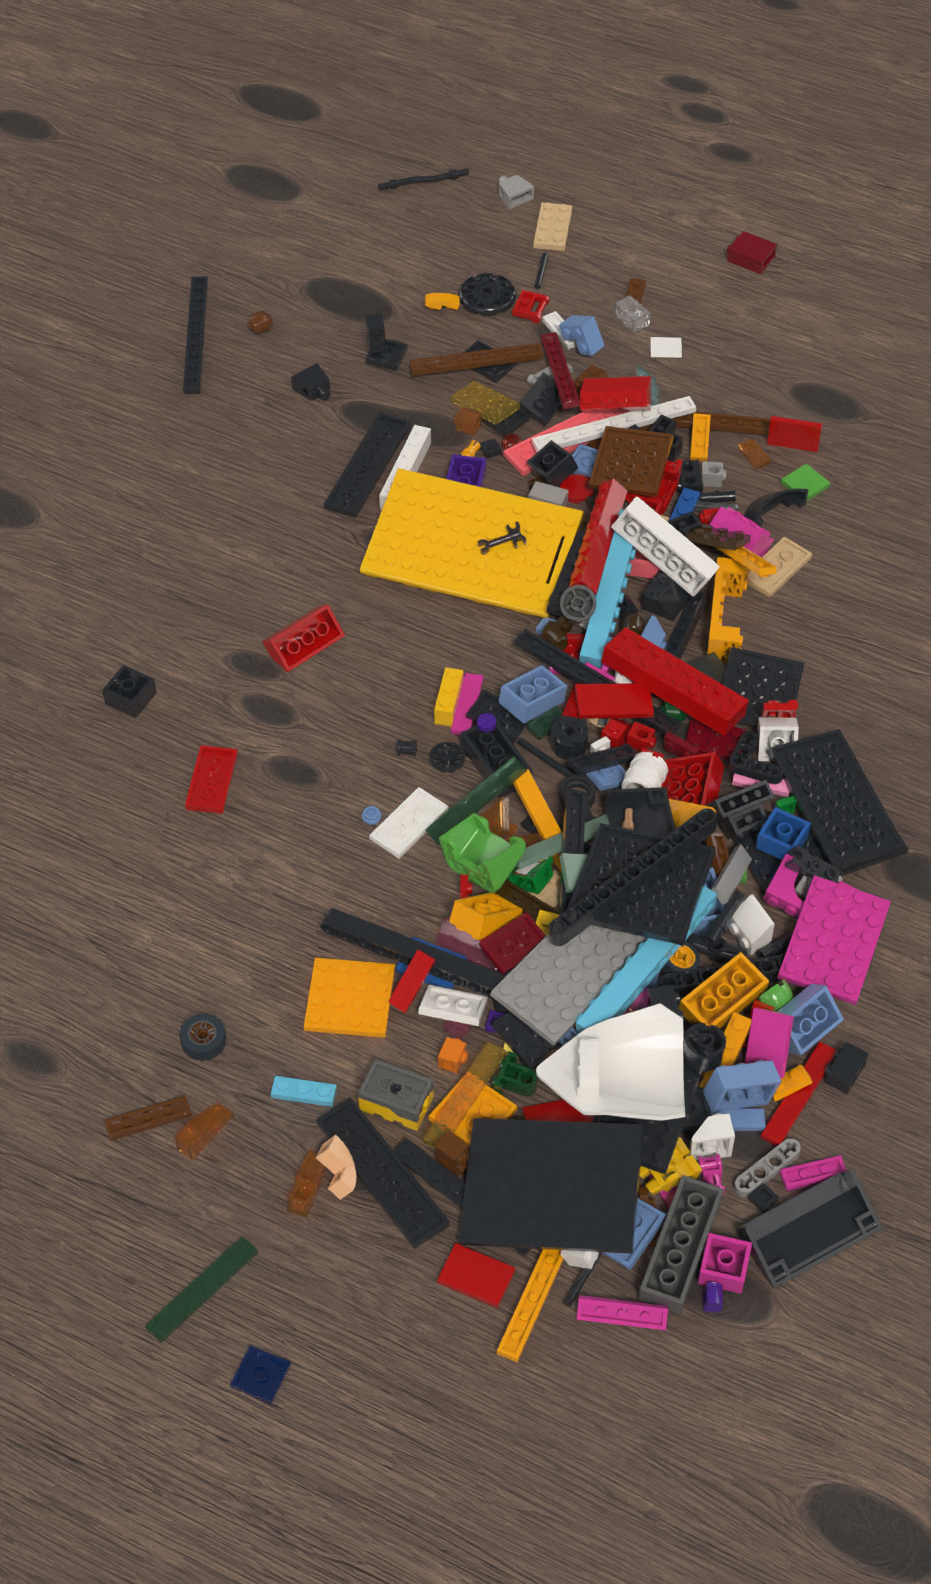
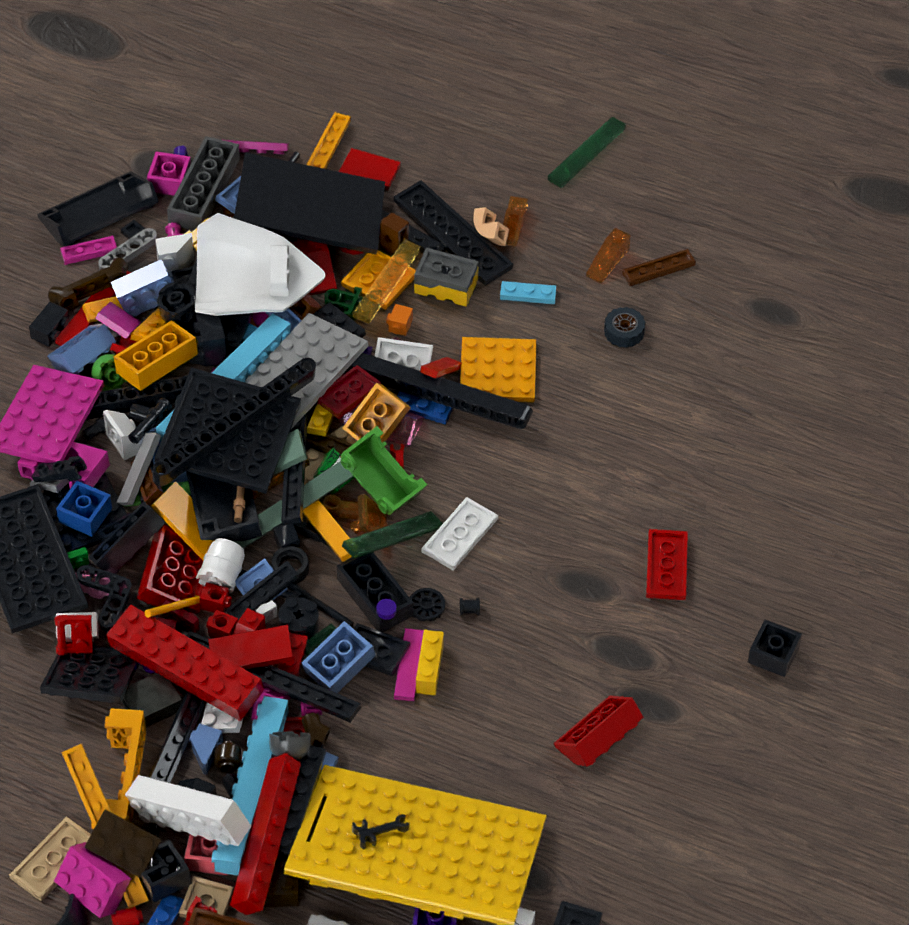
camera: 175 degrees right, 0 degrees up
(260, 1375) = (531, 102): clear blue tile -> none
(371, 815) = (498, 536): medium blue plate -> none
(688, 733) = (172, 606): none -> light orange bar
(827, 1096) = (70, 295): none -> dark brown plate

